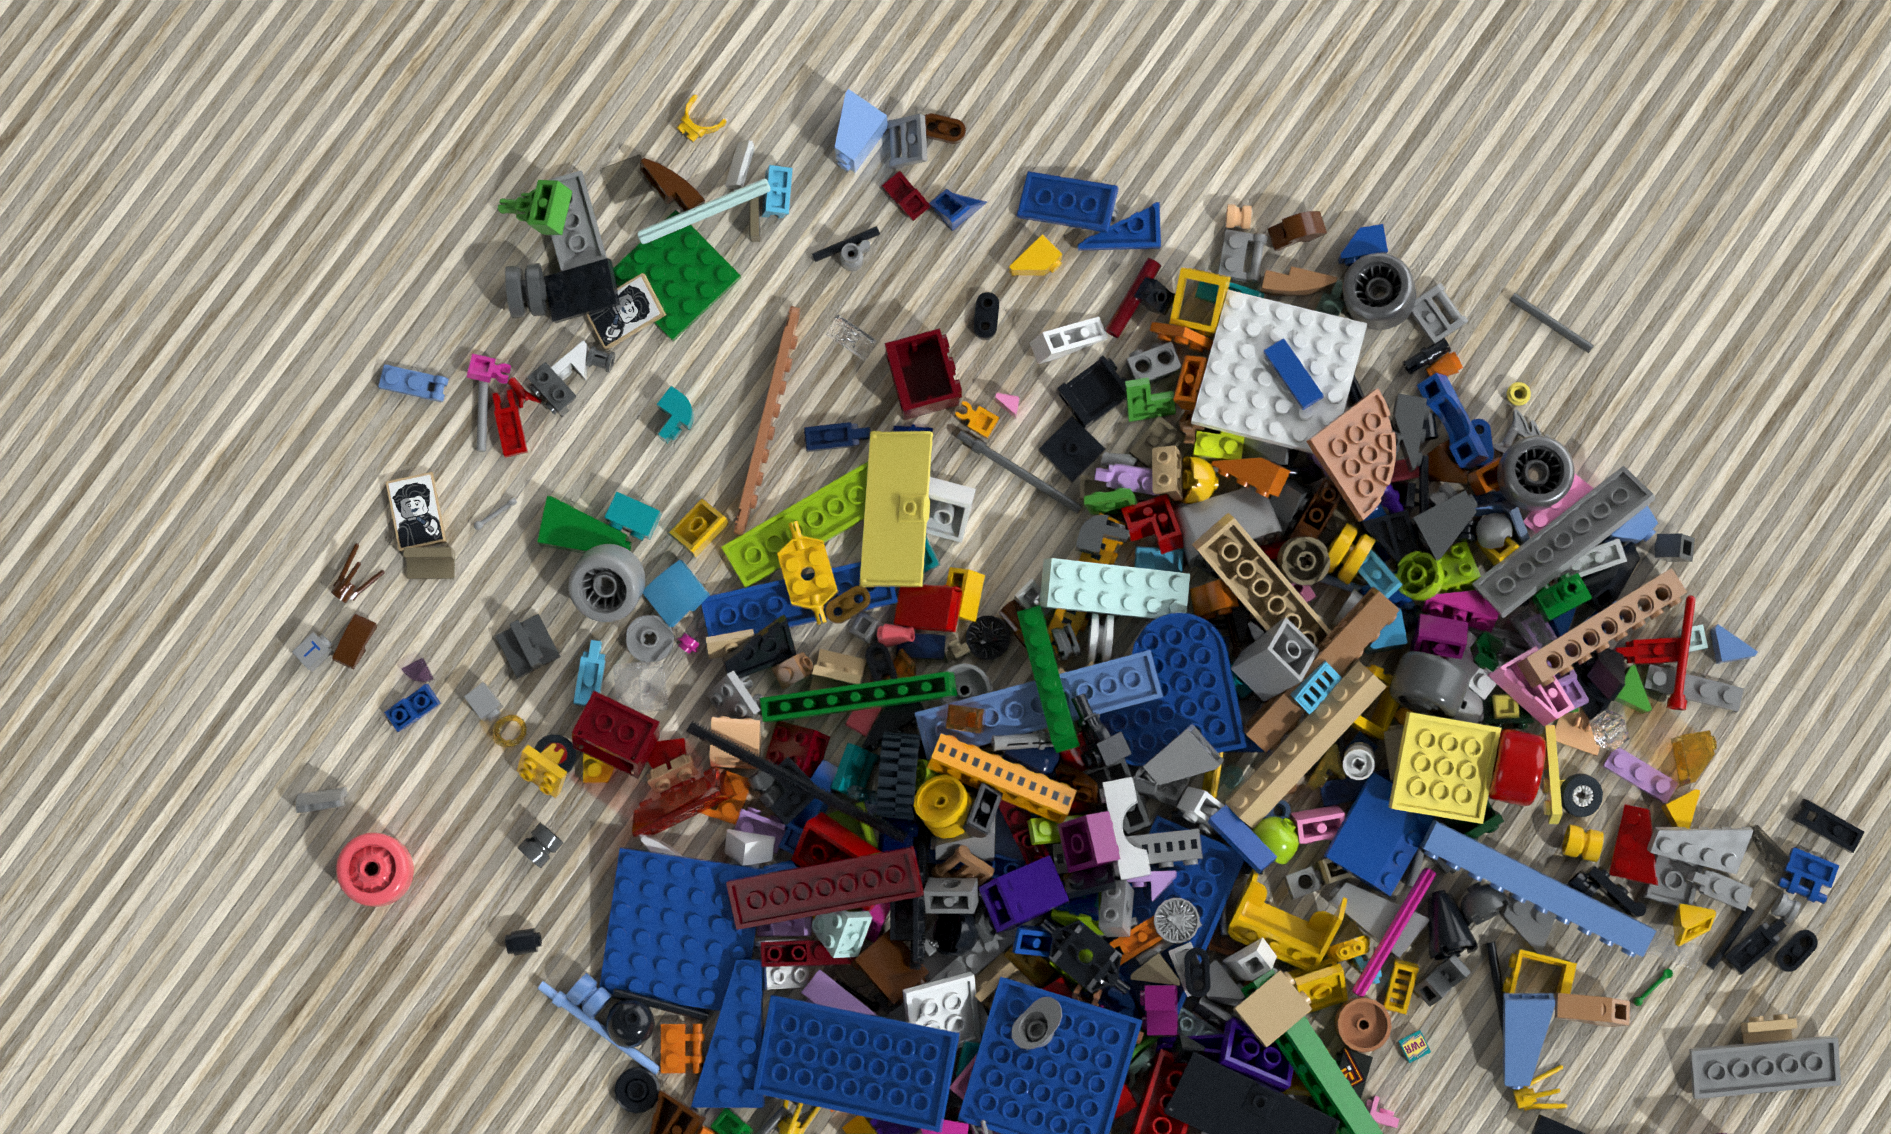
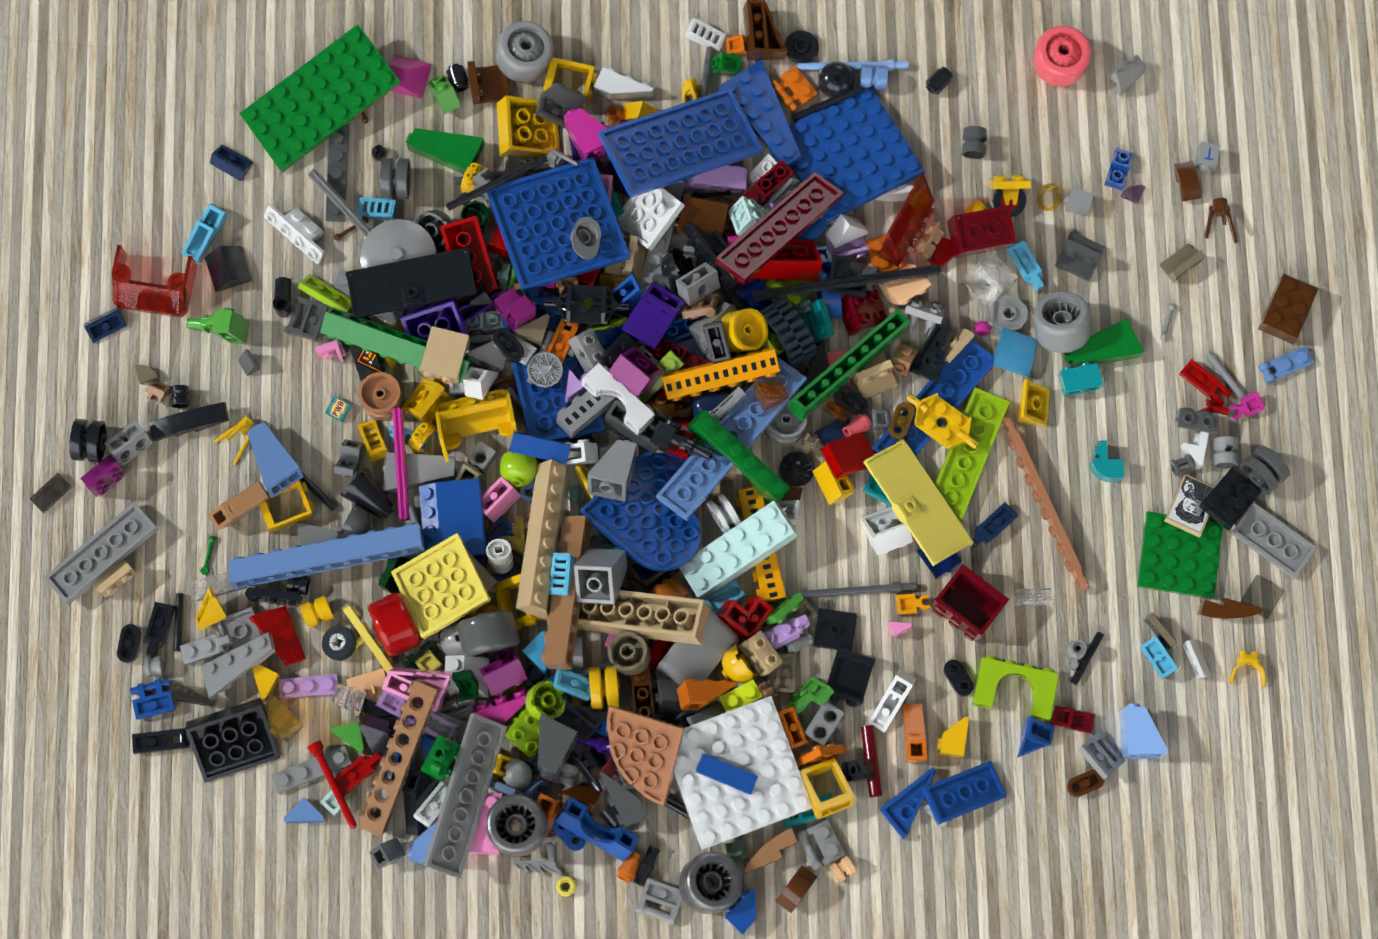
camera: 140 degrees right, 5 degrees down
(365, 435) = (1288, 308): none -> reddish brown brick
(416, 511) = (1216, 287): tile -> none
(541, 208) = (1298, 532): bright green brick -> none
(548, 338) = (1225, 452): none -> light grey wheel
(703, 211) = (1194, 606): light aqua axle -> none
(949, 295) = (1041, 682): none -> lime arch
(1062, 642) = (744, 493): dark grey wheel -> none
(1072, 291) = (914, 733): none -> orange slope
(1095, 530) = (779, 578): dark grey brick -> none
(1755, 775) = (232, 740): none -> black slope

